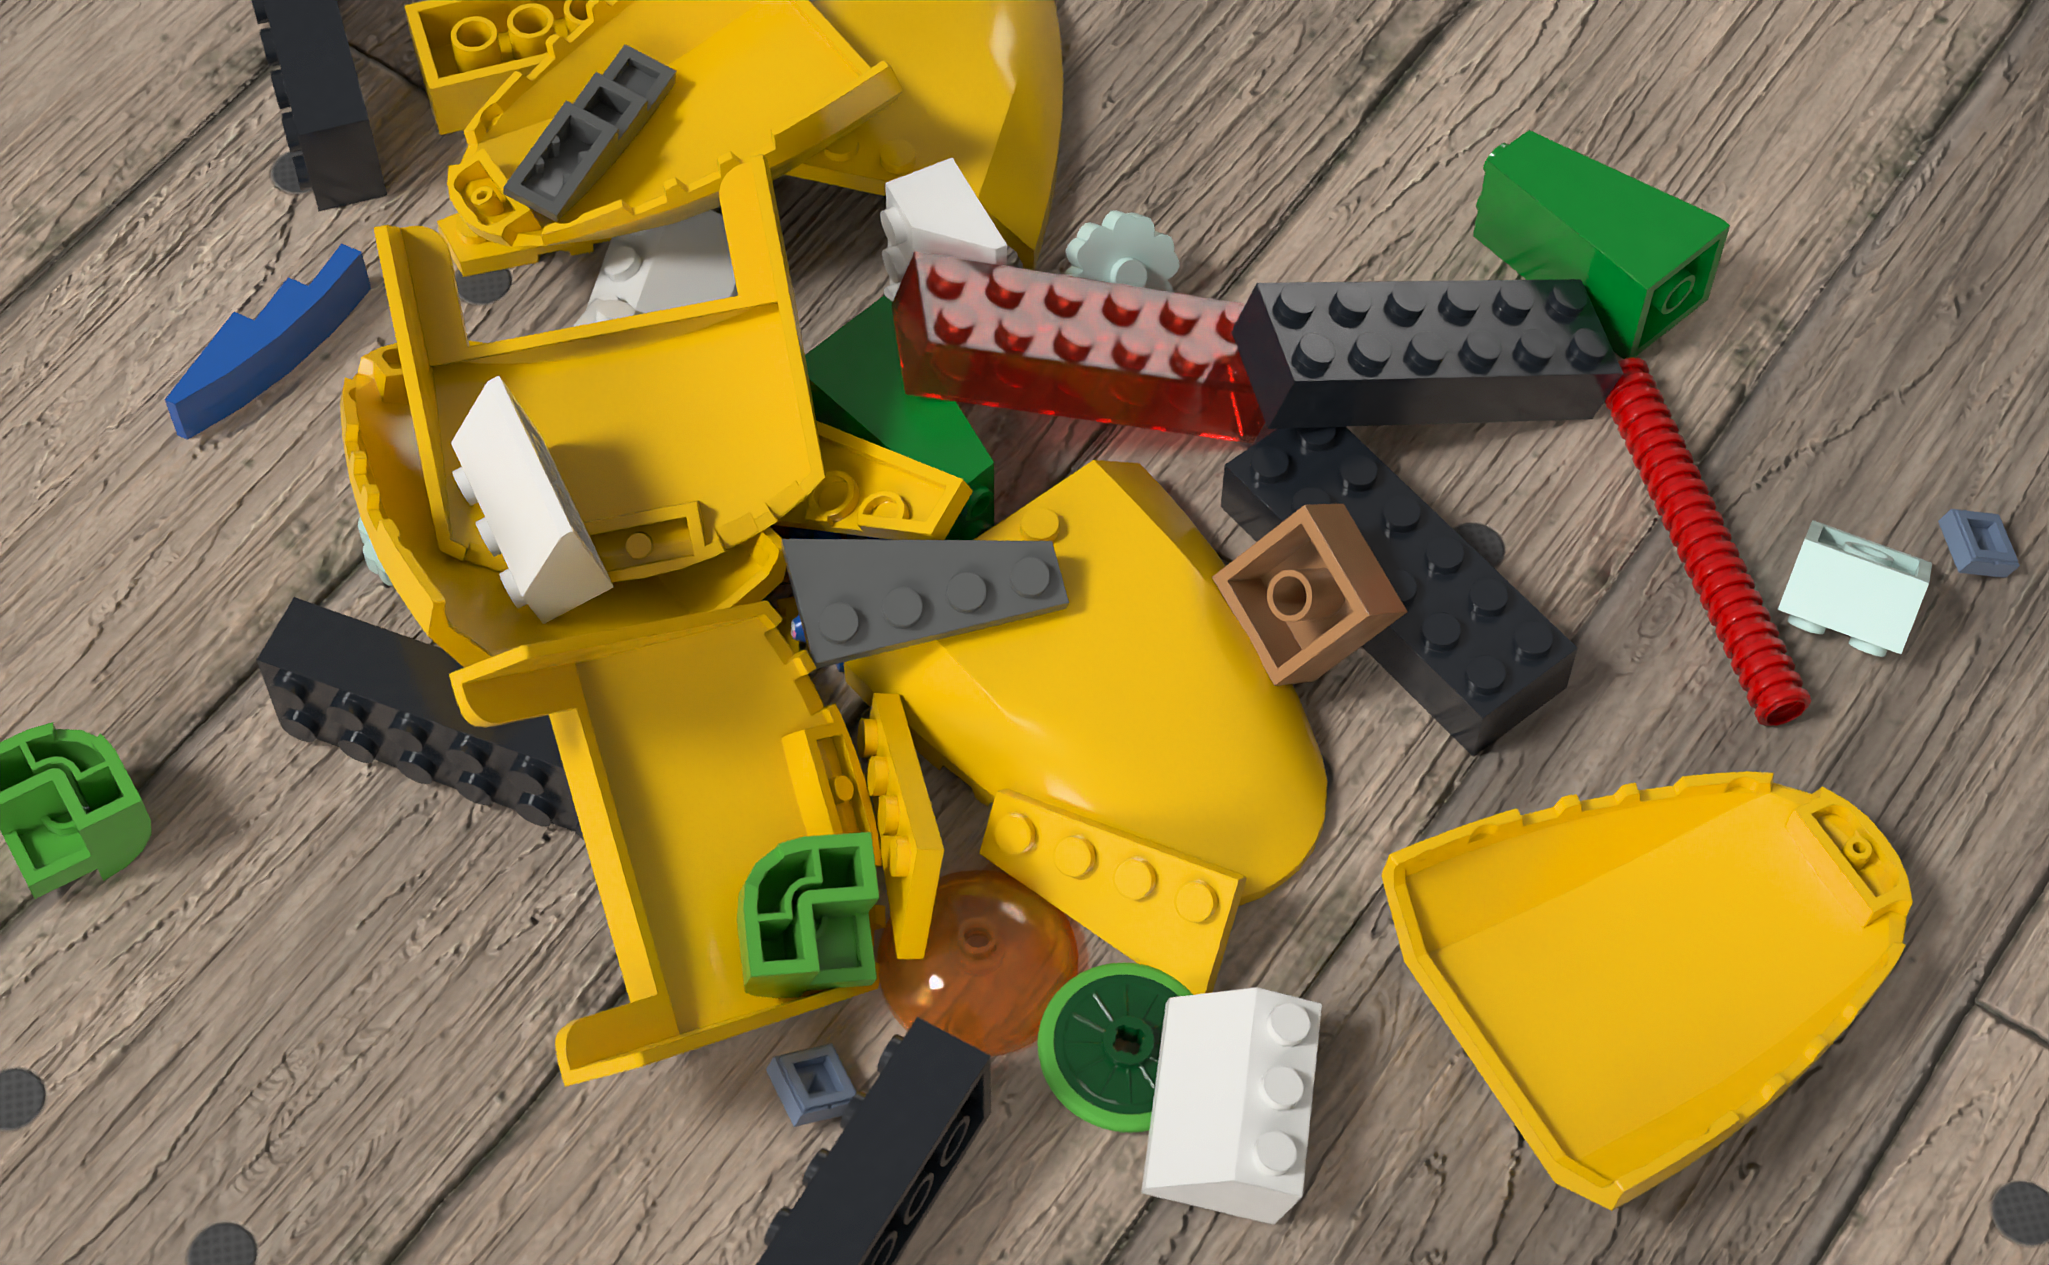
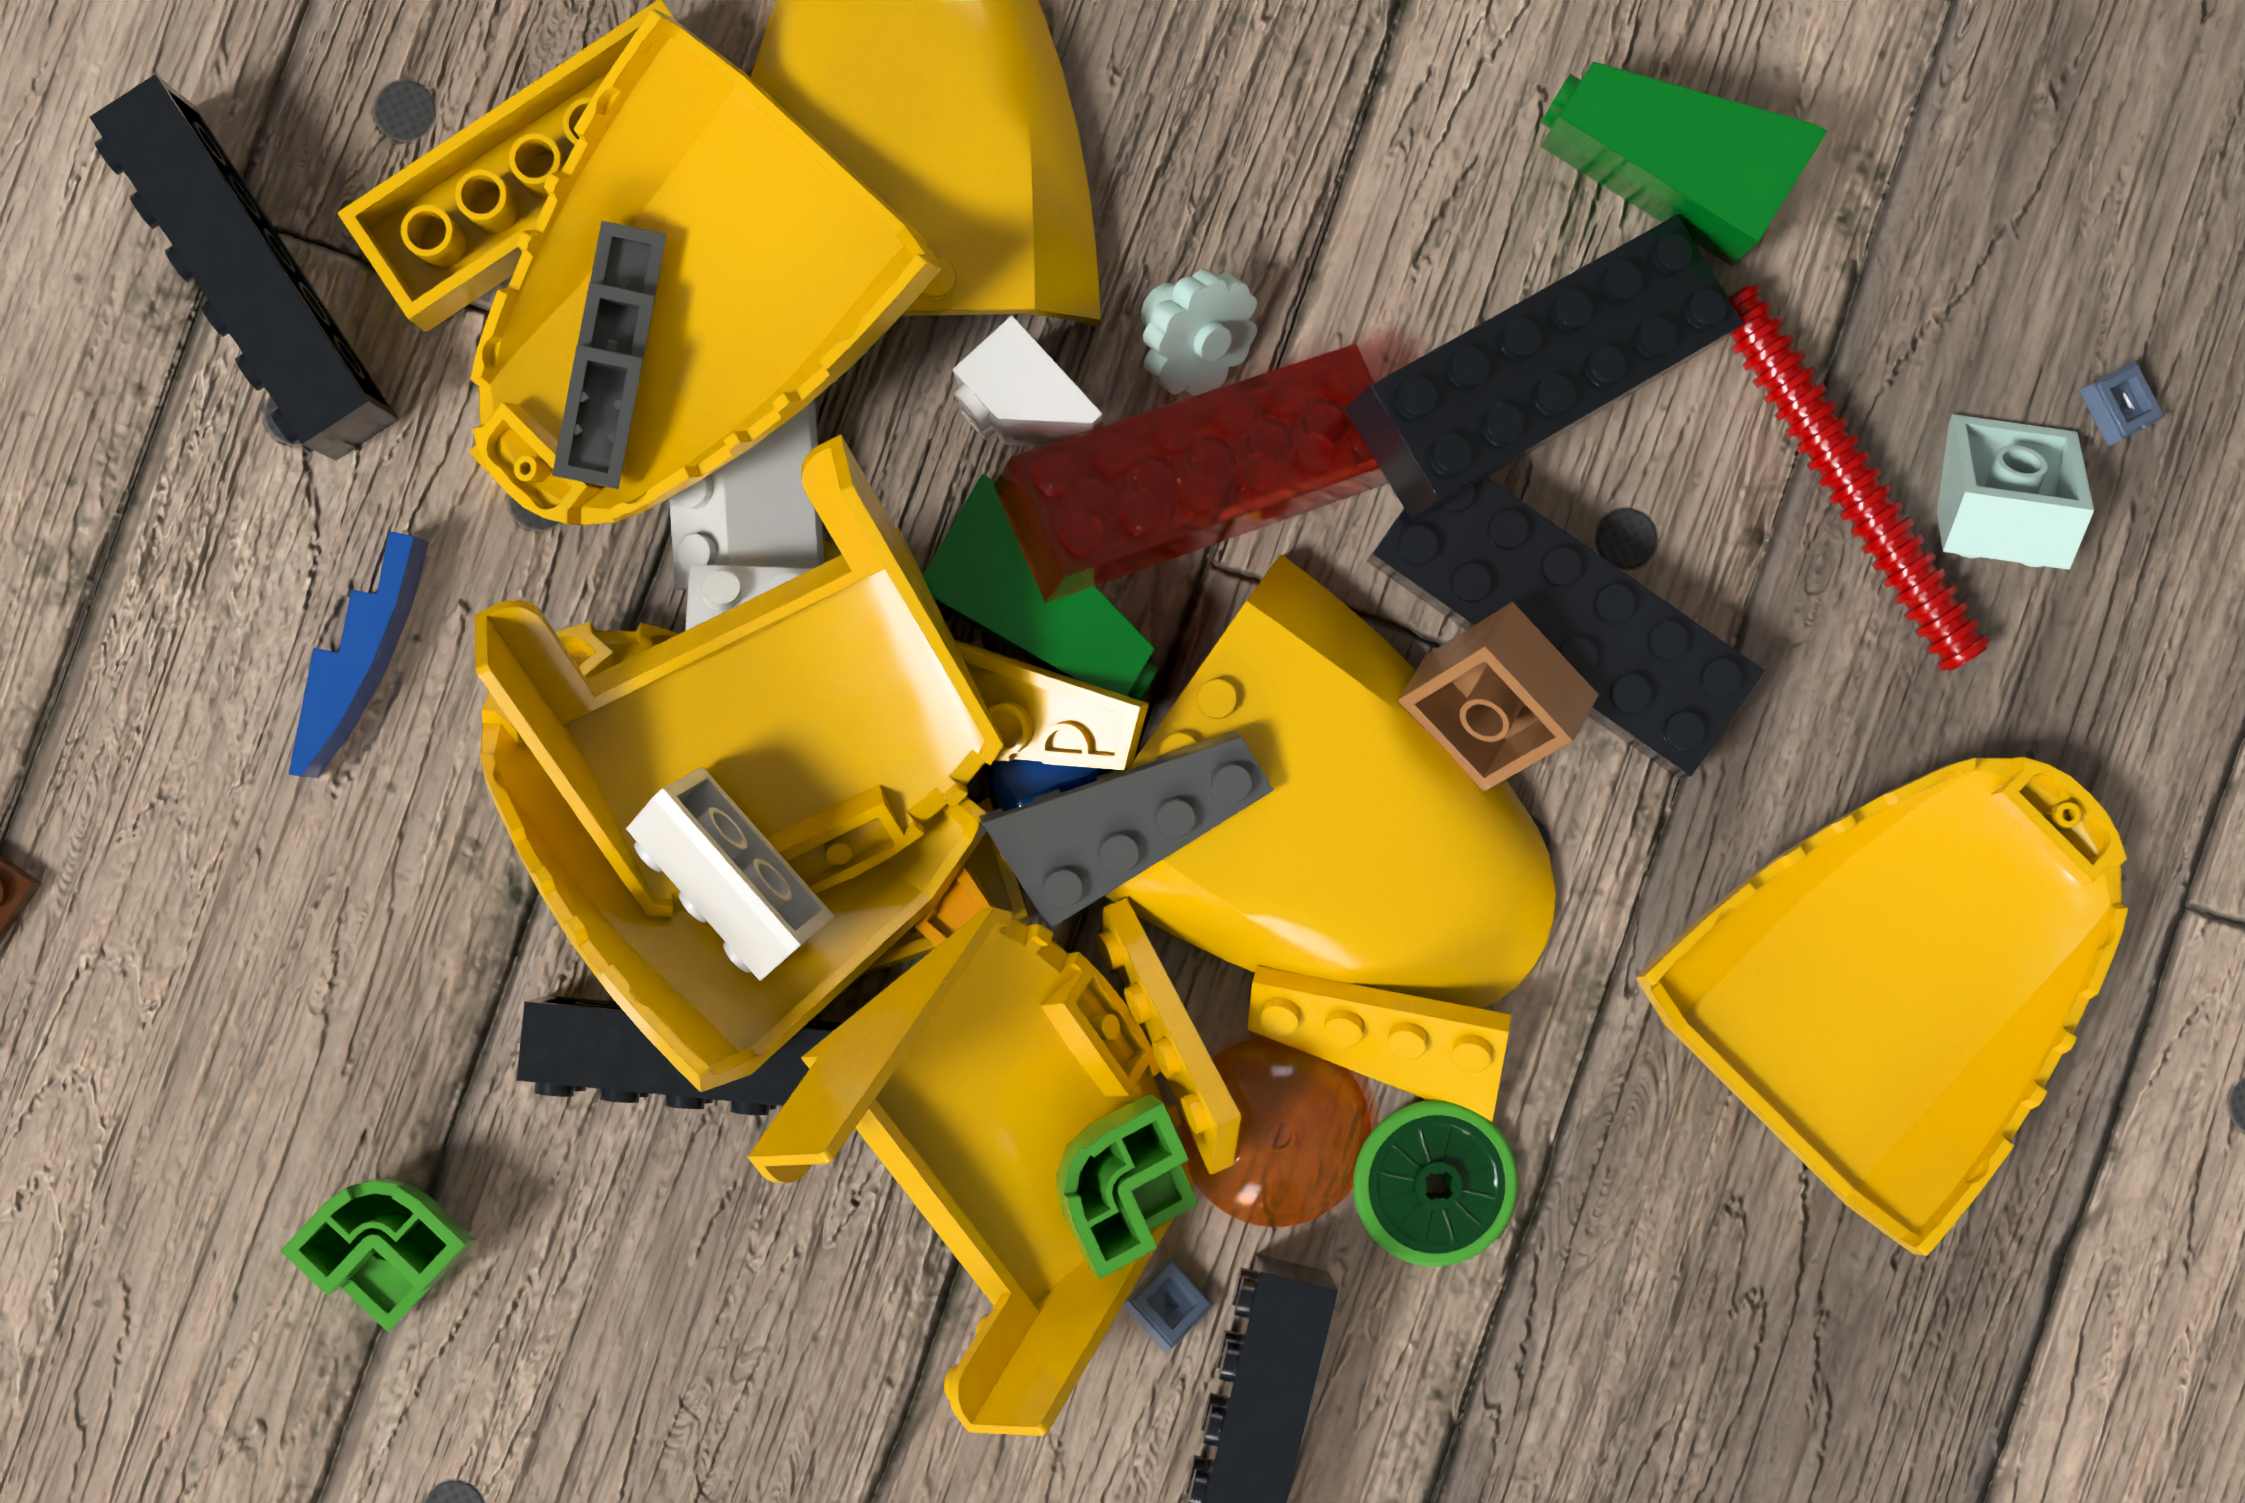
camera: 15 degrees left, 30 degrees up
(1233, 1102) = (1550, 1225): white slope -> none

